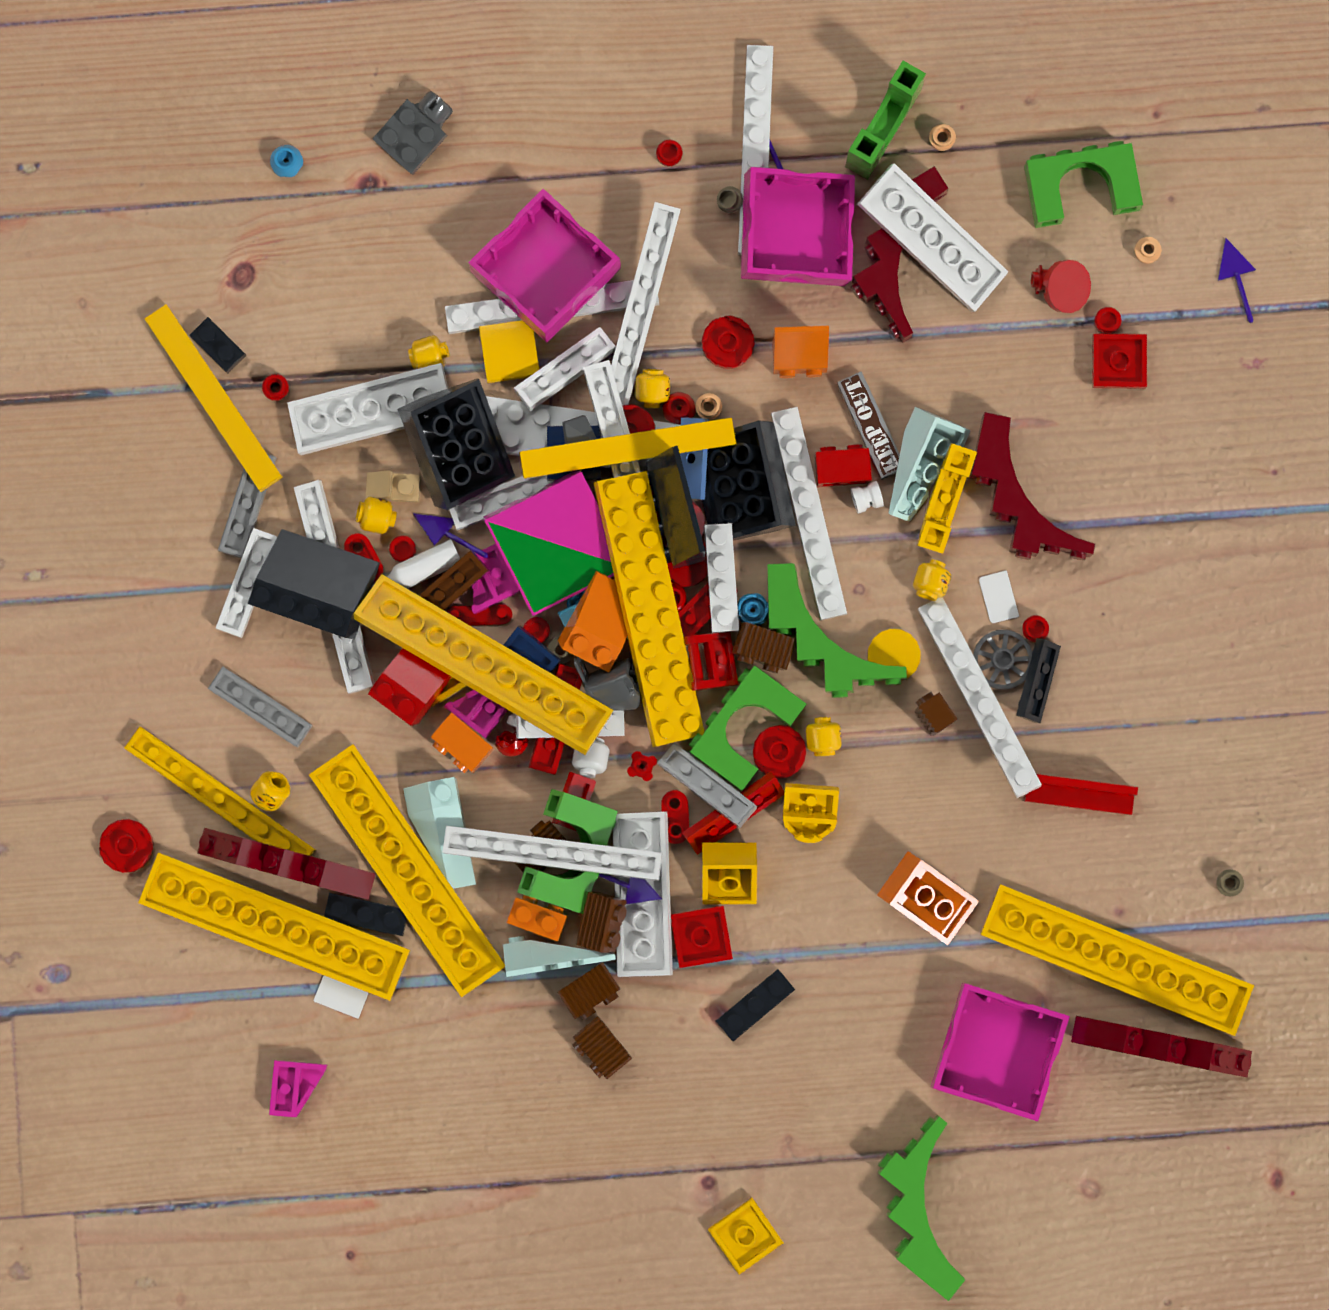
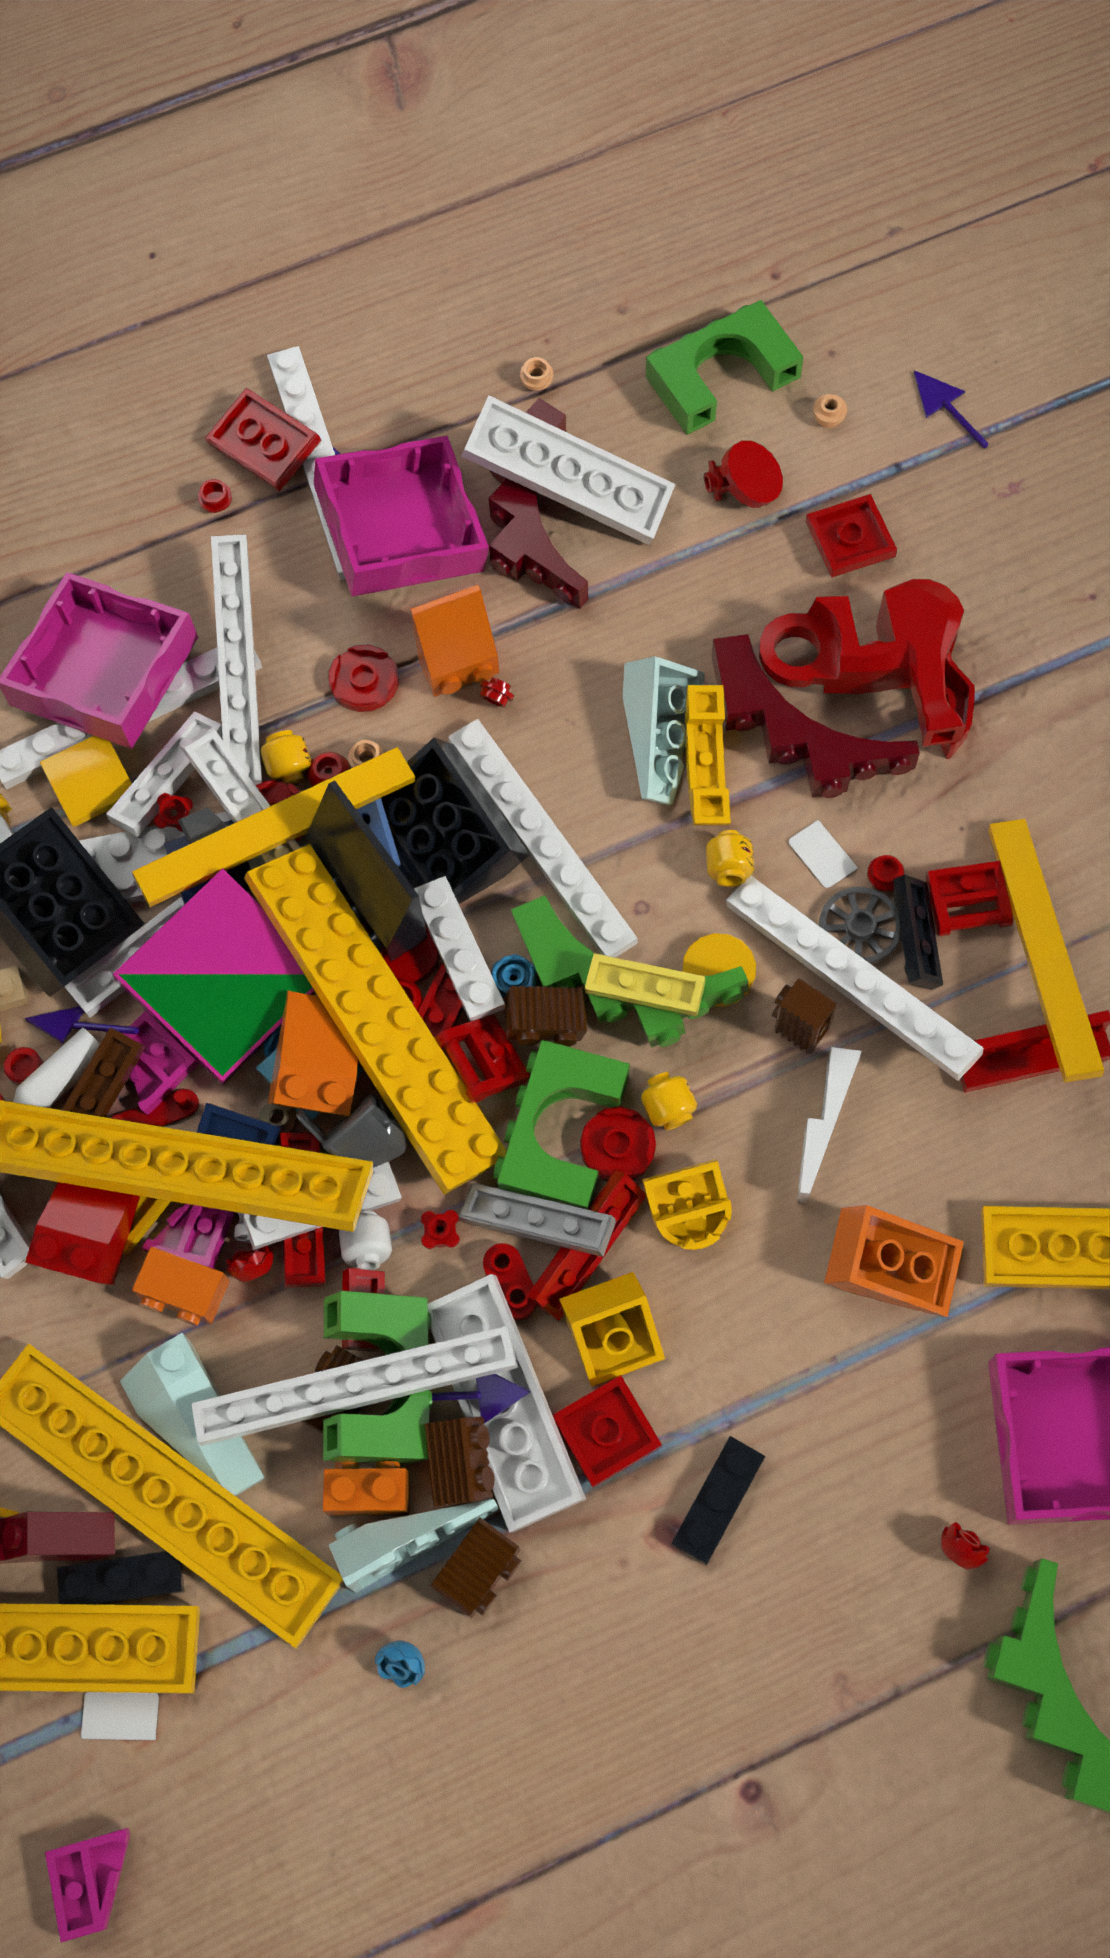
camera: 20 degrees left, 15 degrees down
(523, 1030) = (401, 1663): none -> dark azure plate
(538, 628) = (238, 1100): red tile -> none
(568, 402) = (168, 803): none -> red plate
(601, 1048) = (523, 1645): reddish brown brick -> none
(720, 119) = (263, 439): none -> tile
(729, 199) = (306, 520): dark tan plate -> none
(745, 1235) = (837, 1852): yellow tile -> none
(817, 391) = (496, 692): none -> red plate
(836, 656) = (645, 984): none -> light yellow plate
(843, 466) = (562, 766): red brick -> none
(867, 497) = (607, 791): white wheel -> none
(870, 424) = (577, 709): tile -> none
(873, 141) = (456, 389): bright green arch -> none
(895, 1090) = (963, 1547): none -> red plate
(942, 763) = (817, 1133): none -> white slope
(1086, 660) = (965, 887): none -> red plate
(1107, 320) = (815, 497): red tile -> none
(1116, 726) = (1046, 952): none -> yellow tile
(1129, 466) = (912, 651): none -> red animal

